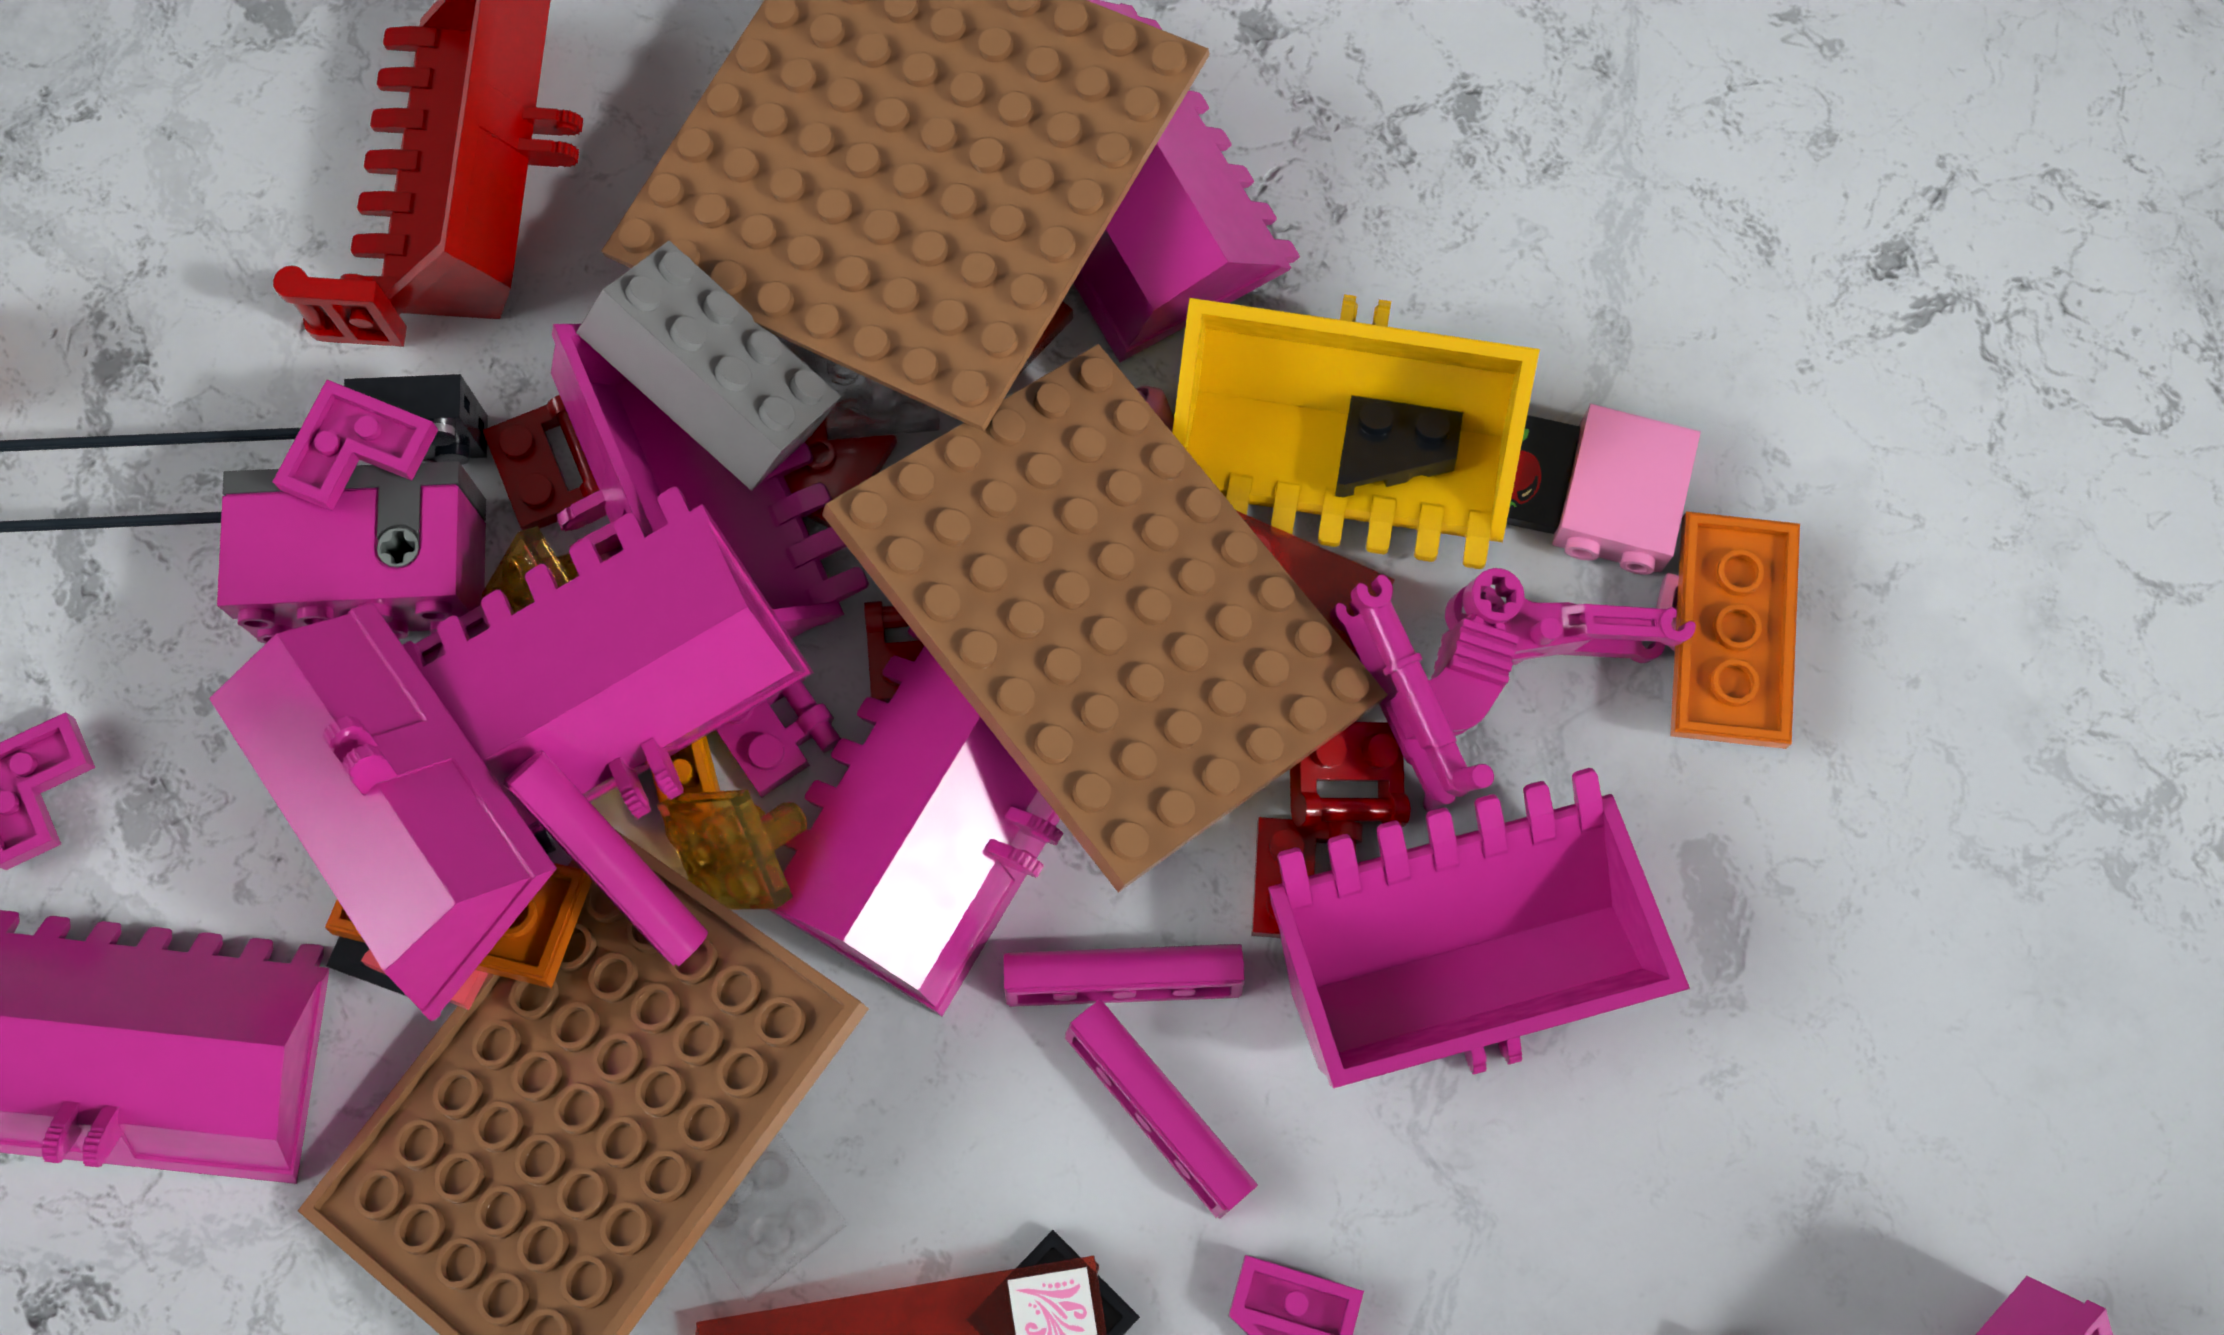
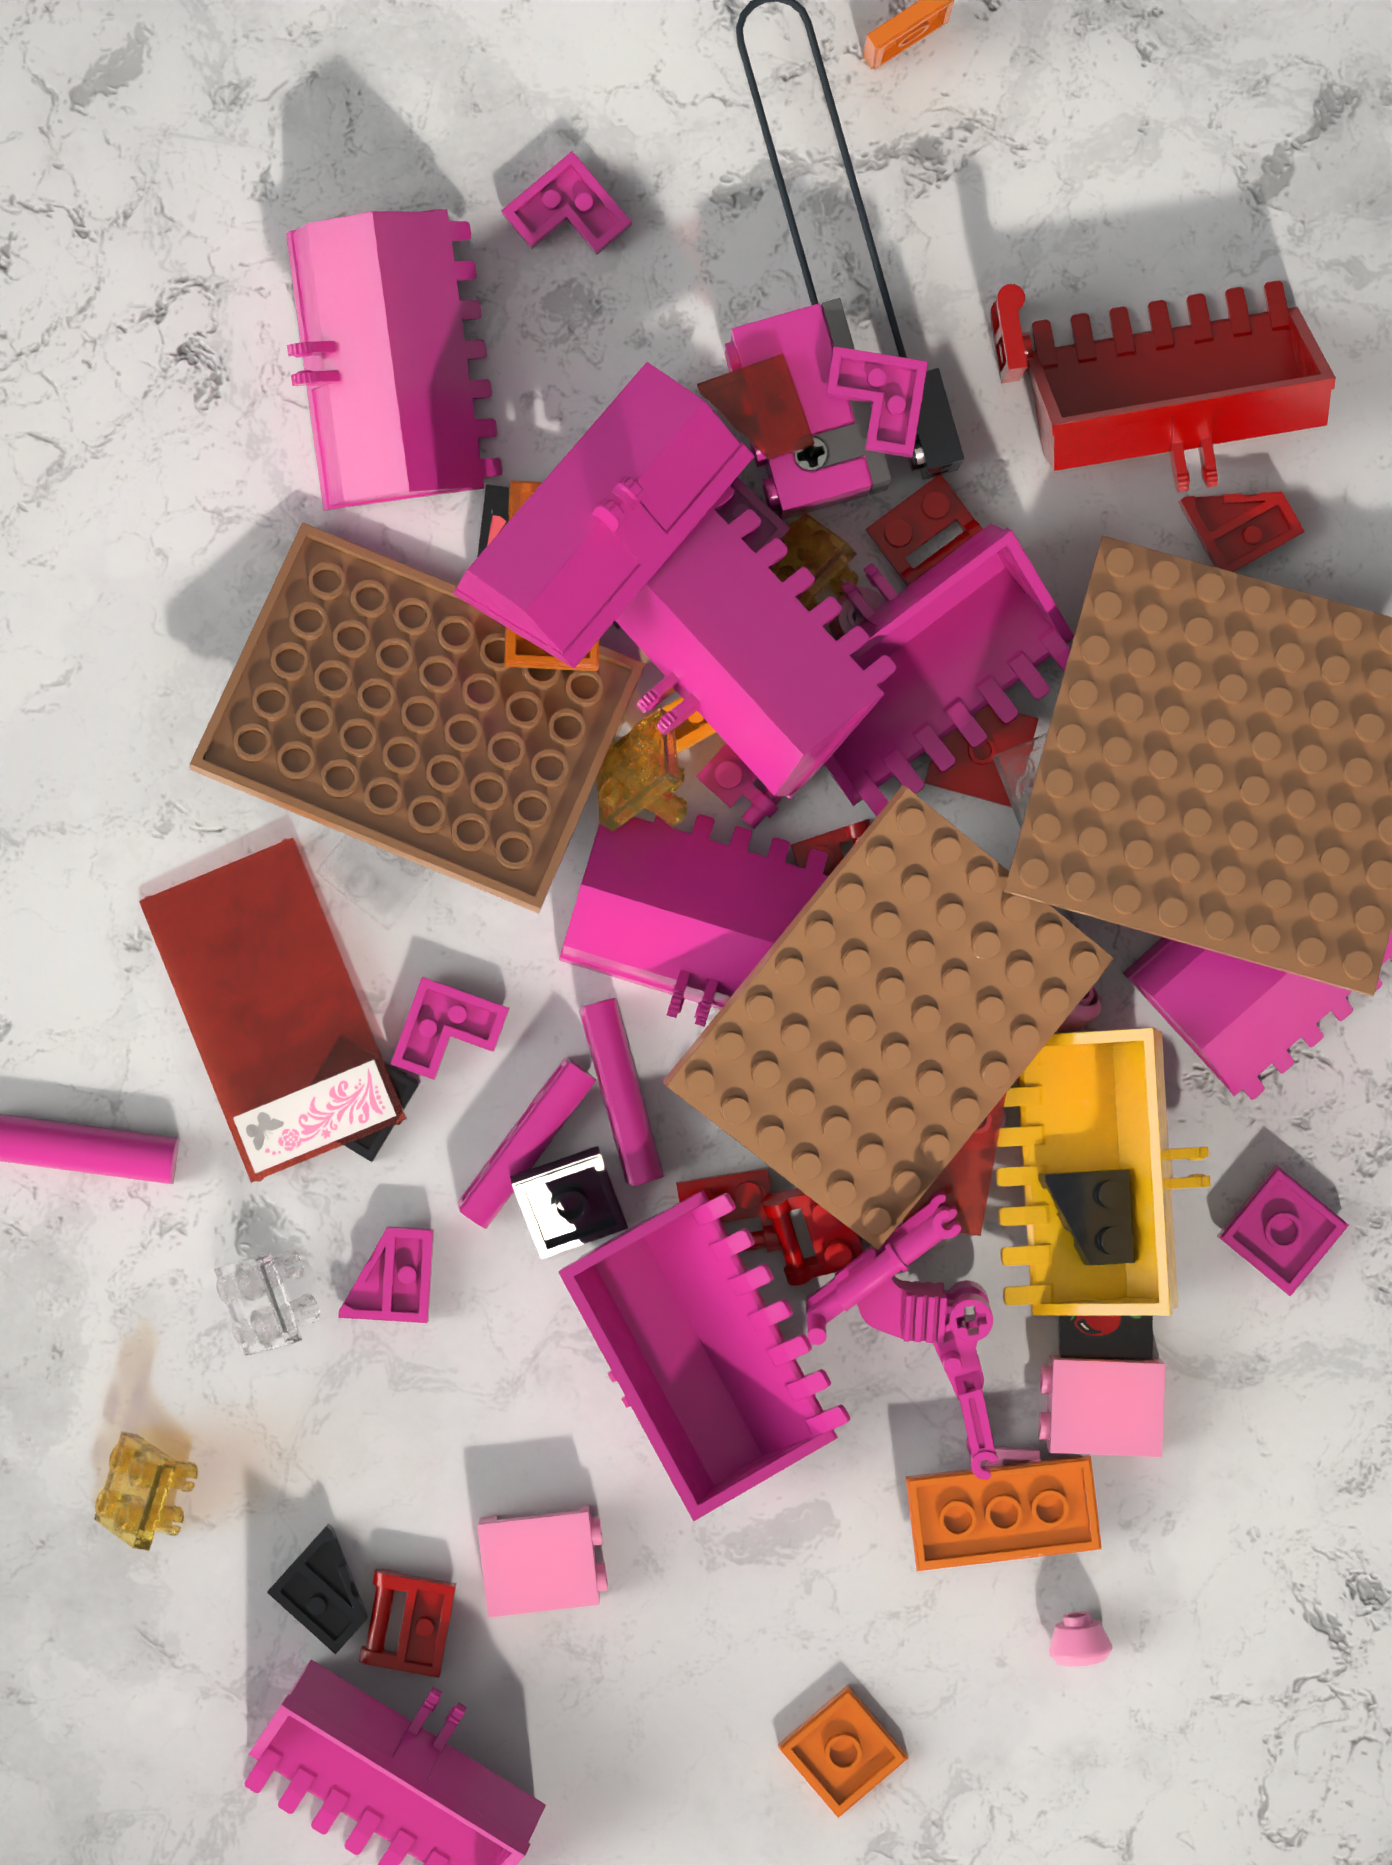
camera: 80 degrees right, 15 degrees up
(323, 579) = (762, 406): none -> clear red wing
(606, 858) = (600, 691): dark pink brick -> none
(640, 121) = (1240, 526): none -> red wing
(708, 364) = (1016, 656): light grey brick -> none
(971, 1179) = (441, 1014): none -> dark pink plate
(1247, 1069) = (569, 1202): none -> black tile
(1458, 253) = (1283, 1230): none -> dark pink plate
(1702, 1214) = (541, 1562): none -> bright pink panel
(1905, 579) = (1079, 1641): none -> bright pink cone
(1998, 893) = (843, 1751): none -> orange tile

